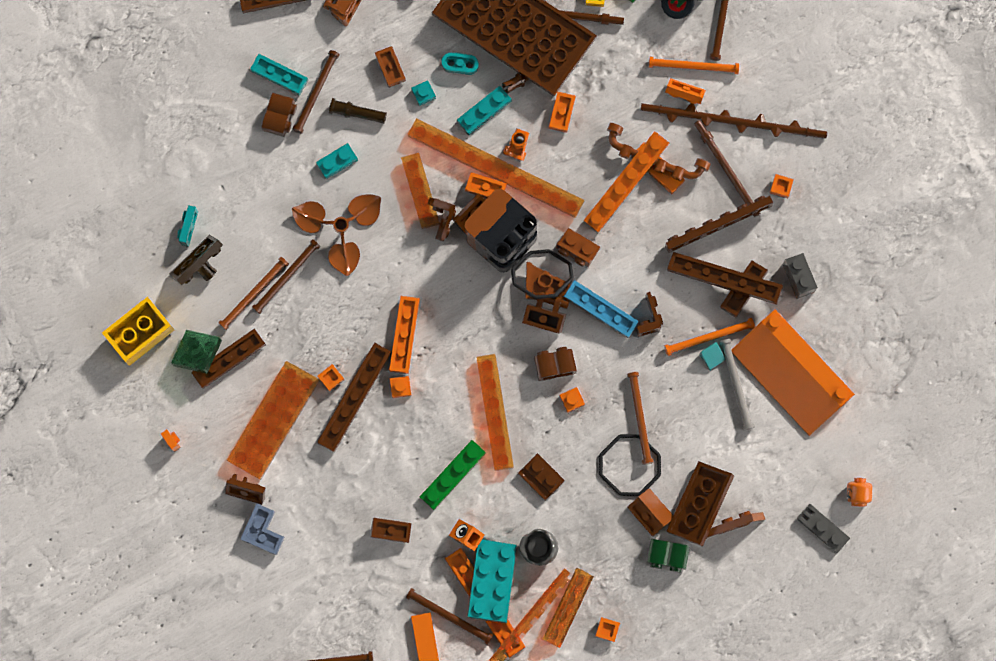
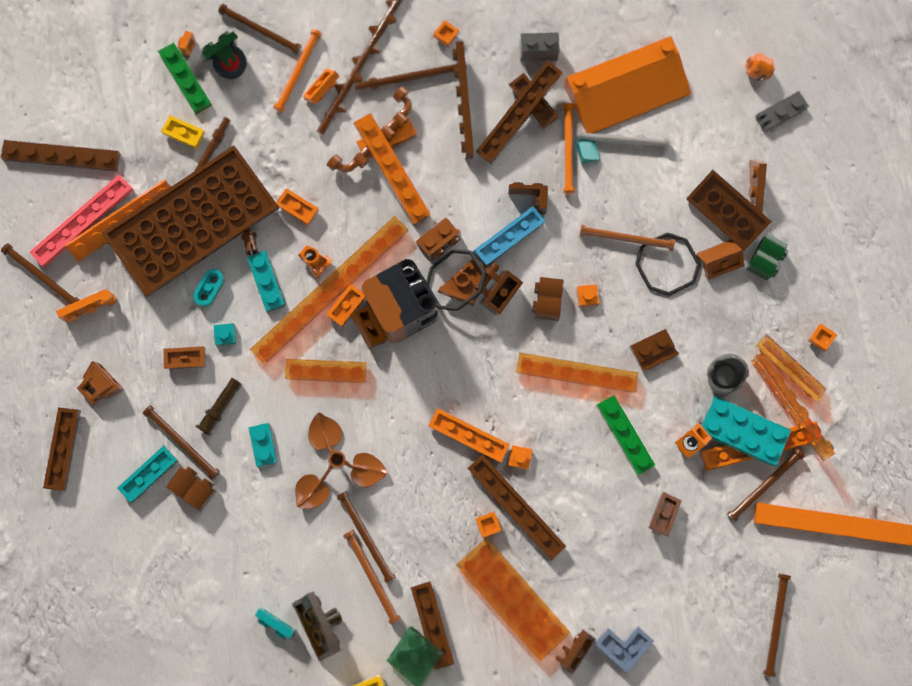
camera: 75 degrees left, 0 degrees up
(448, 215) = (361, 350): reddish brown bracket -> none

